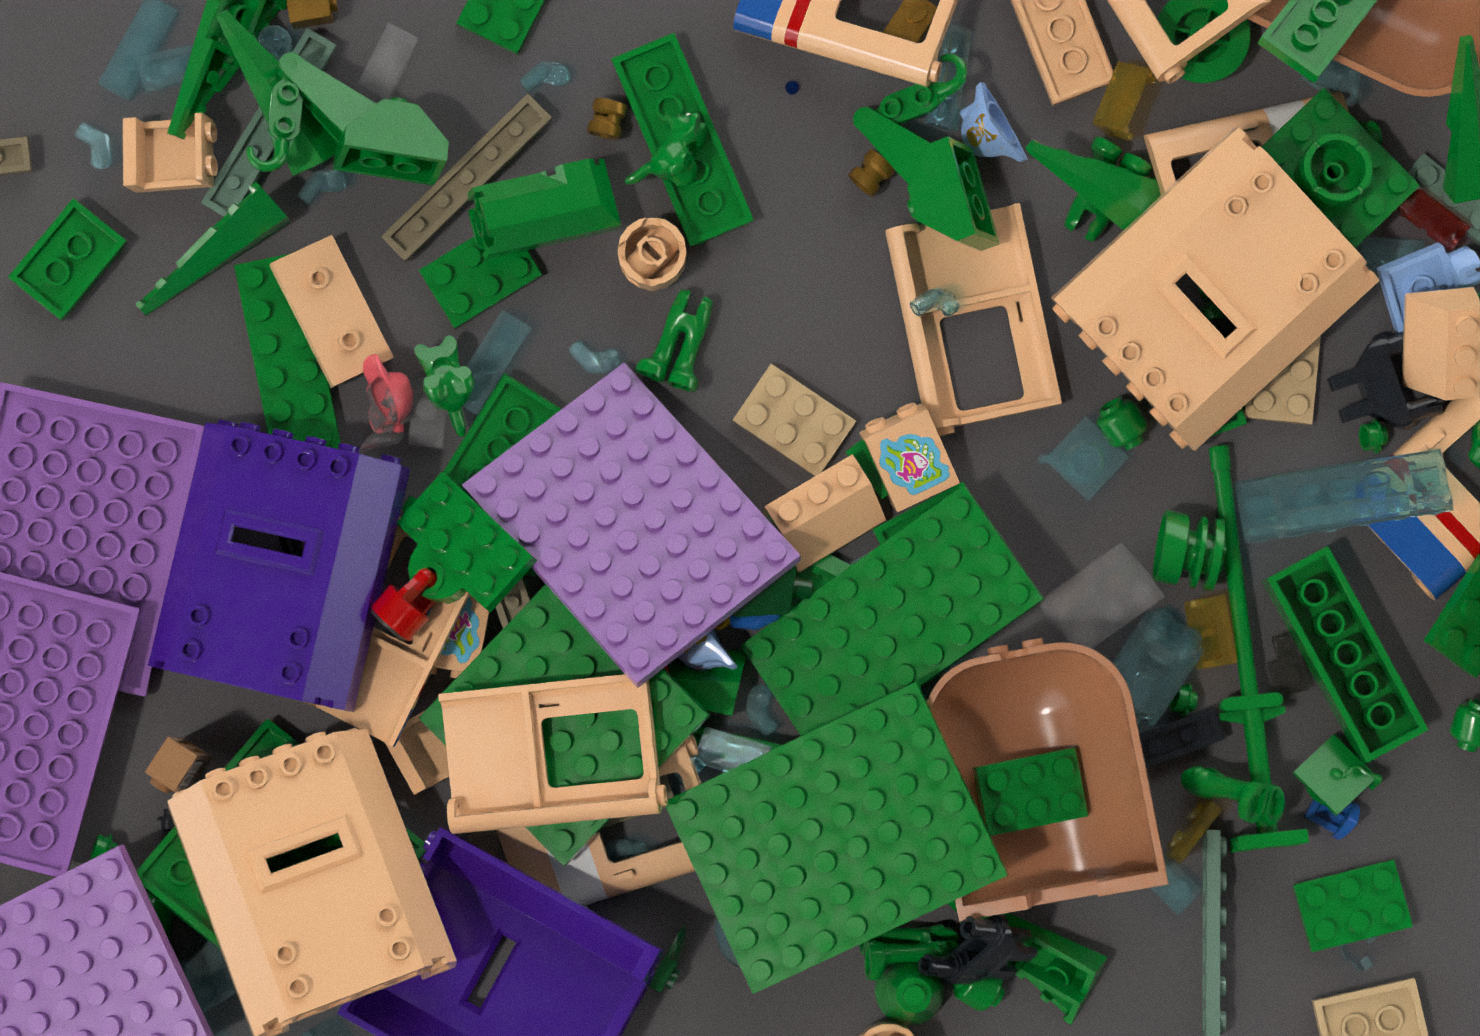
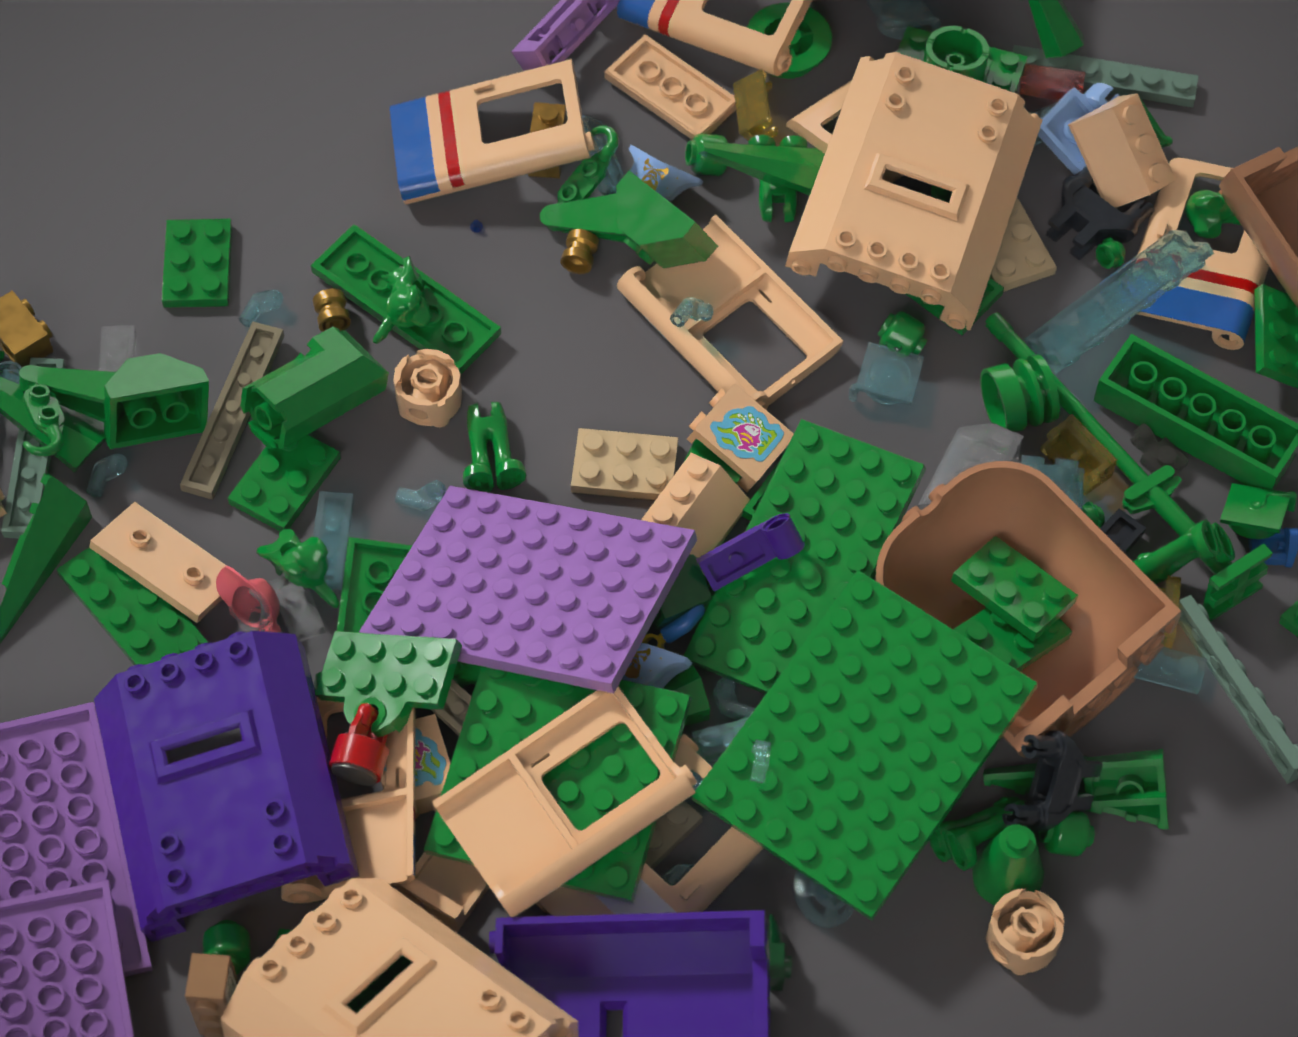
camera: 25 degrees left, 25 degrees down
(214, 714) = (230, 940): none -> green head
(731, 813) = (762, 751): none -> clear light blue piece
(844, 593) = (750, 550): none -> dark purple plate
(1052, 126) = (700, 164): none -> green head
(1056, 754) = (1014, 588): none -> green plate

